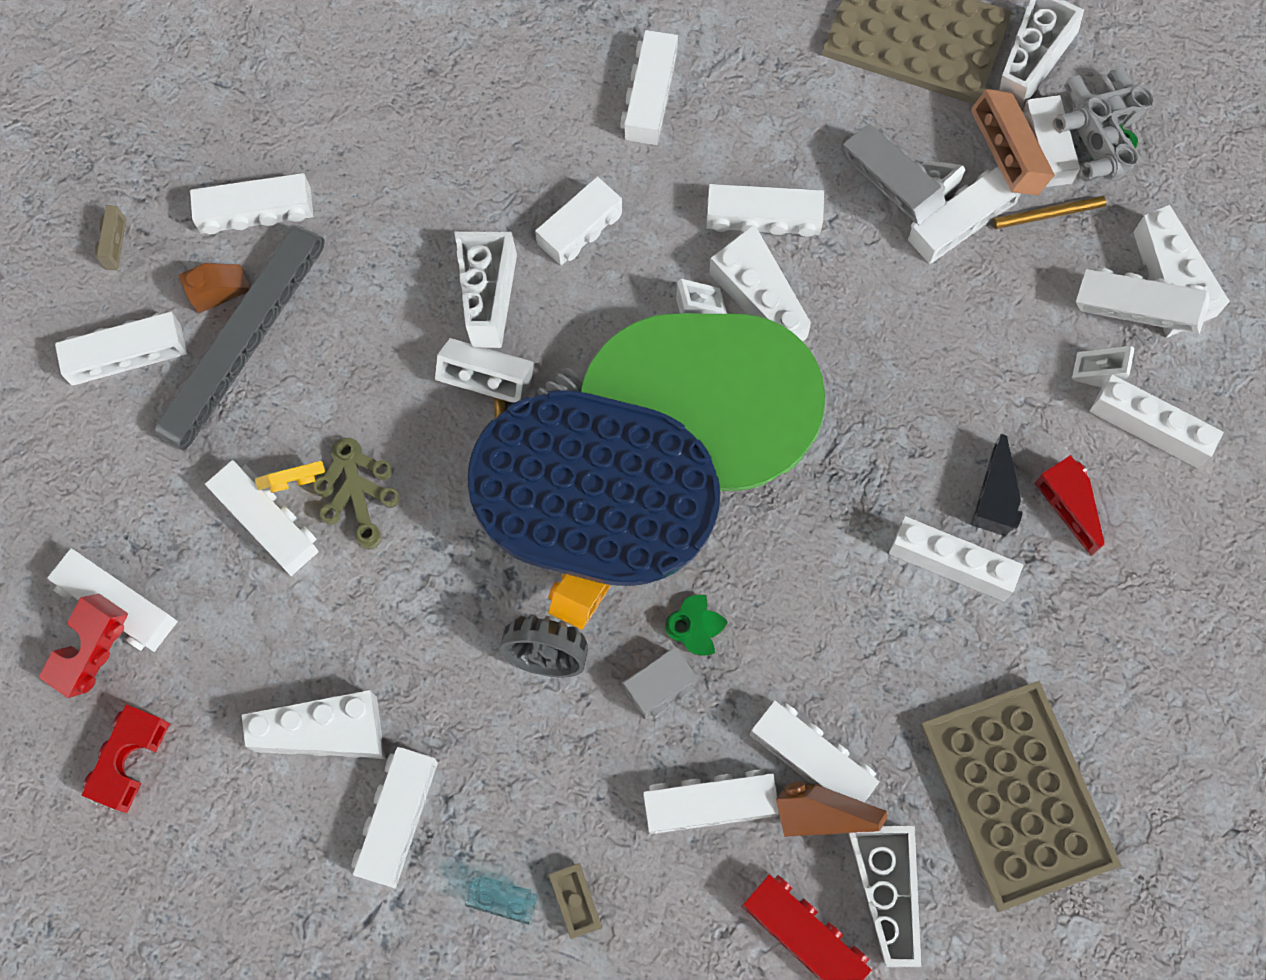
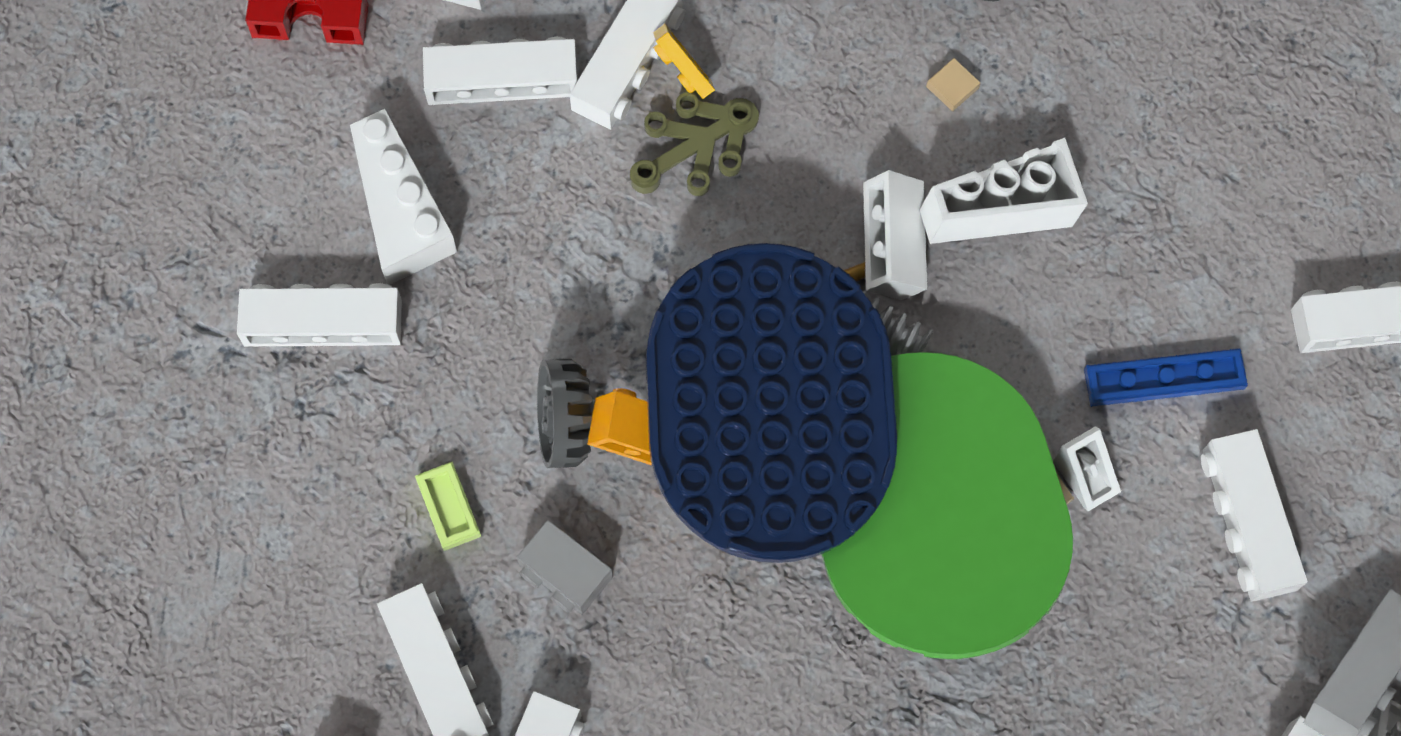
camera: 70 degrees right, 0 degrees up
(240, 618) = (499, 71): none -> white brick
(378, 297) = (953, 84): none -> tan tile
(512, 904) = (255, 463): clear light blue hinge -> none
(575, 901) = (278, 547): dark tan plate -> none
(579, 221) = (1144, 286): white brick -> none
(582, 759) = (448, 506): none -> yellowish green tile
(647, 233) = (1165, 377): none -> blue tile
(700, 624) = (654, 597): green plate -> none
(757, 283) = (1141, 532): white wedge -> none

